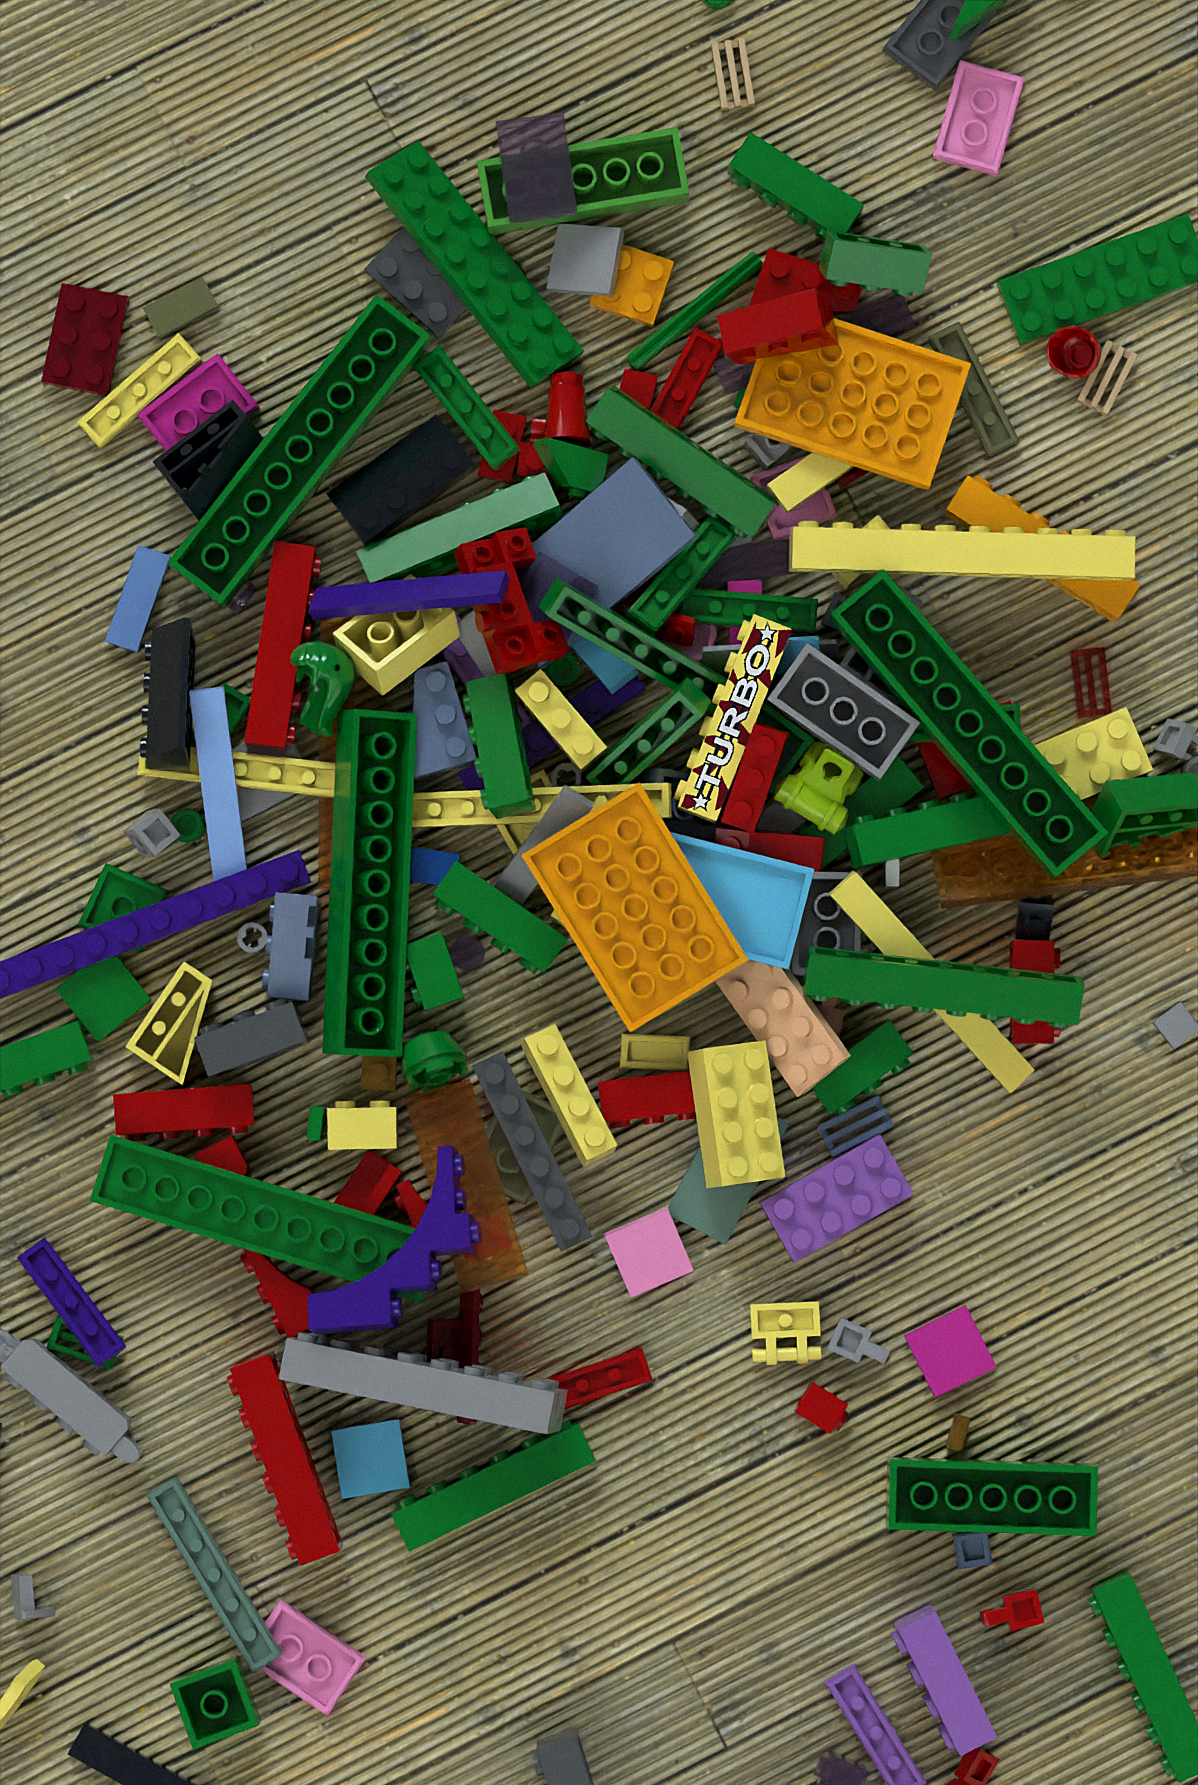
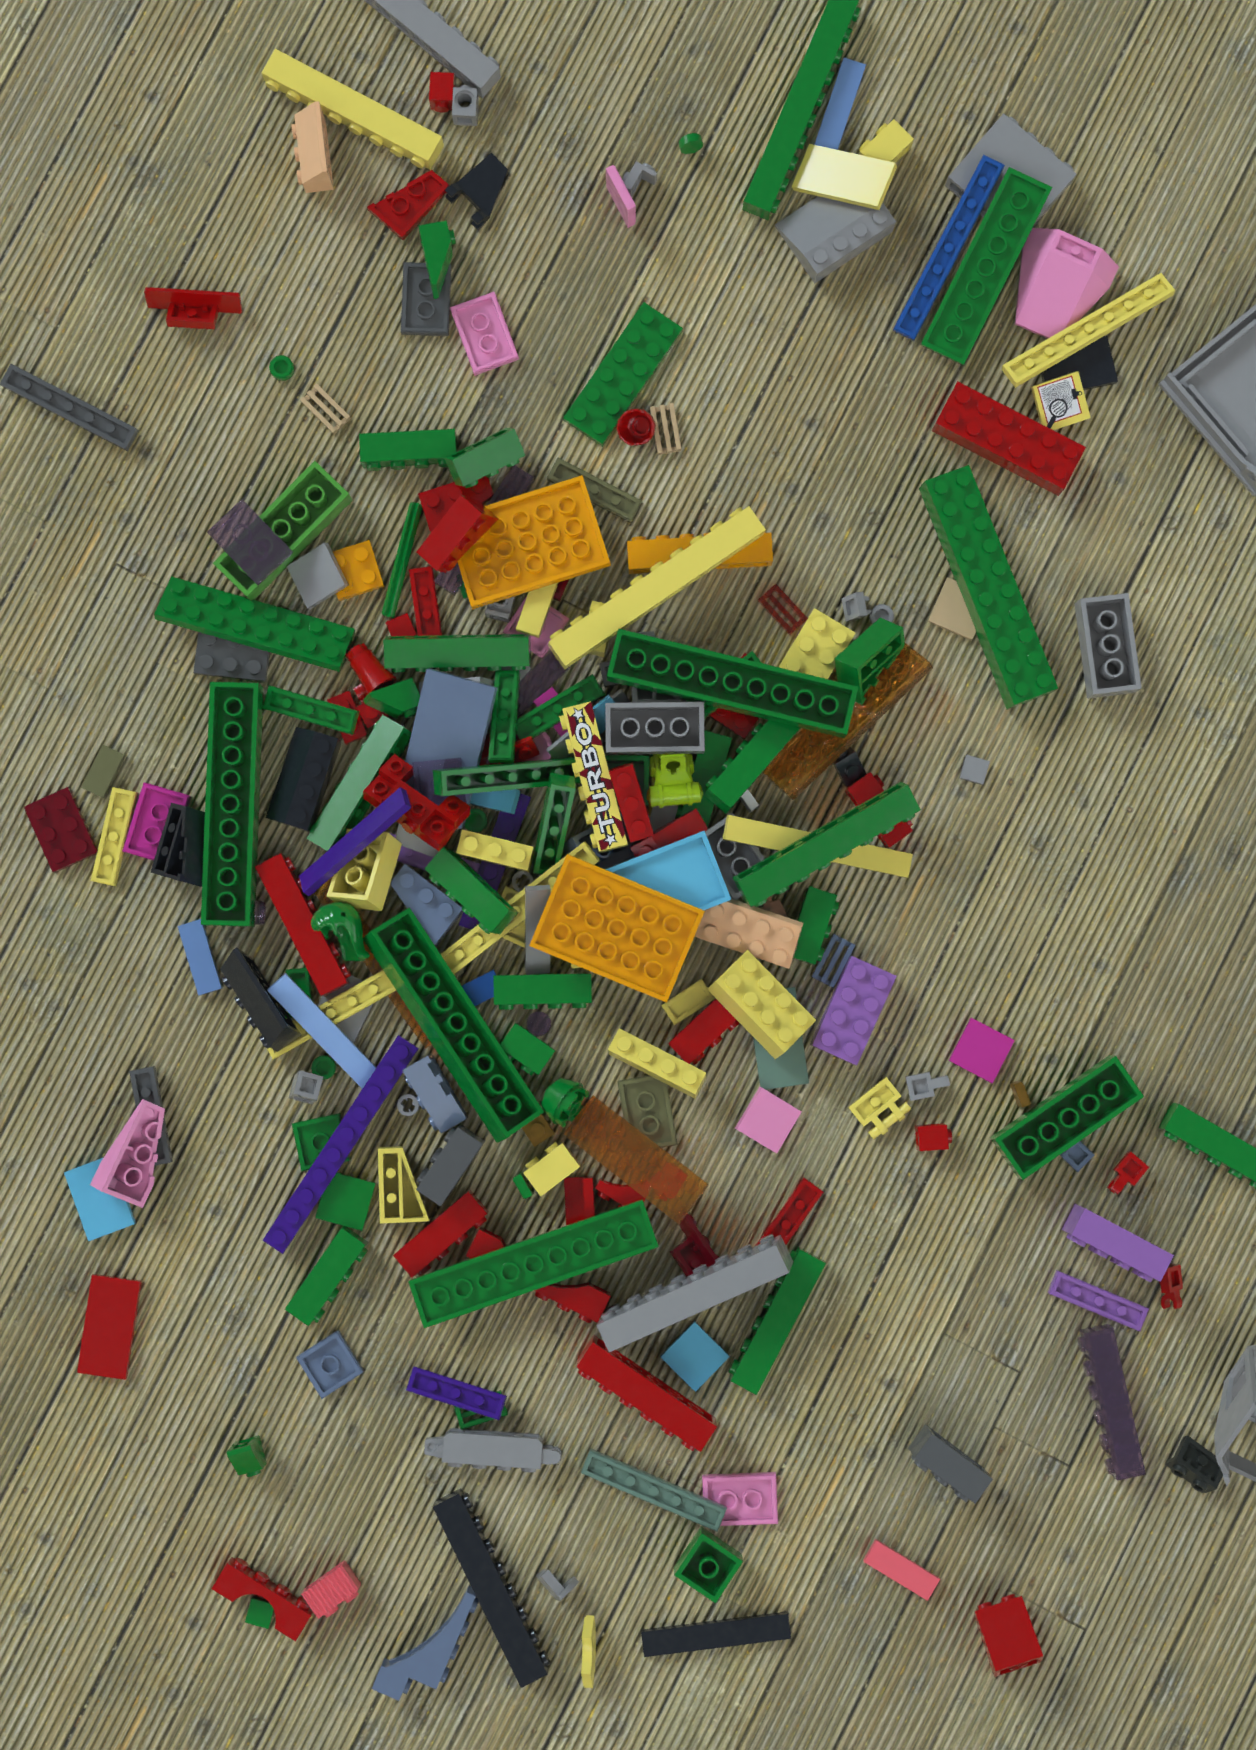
camera: 30 degrees left, 0 degrees up
(413, 1268) = (640, 1230): dark purple arch -> none
(532, 1151) = (659, 1110): dark grey plate -> none

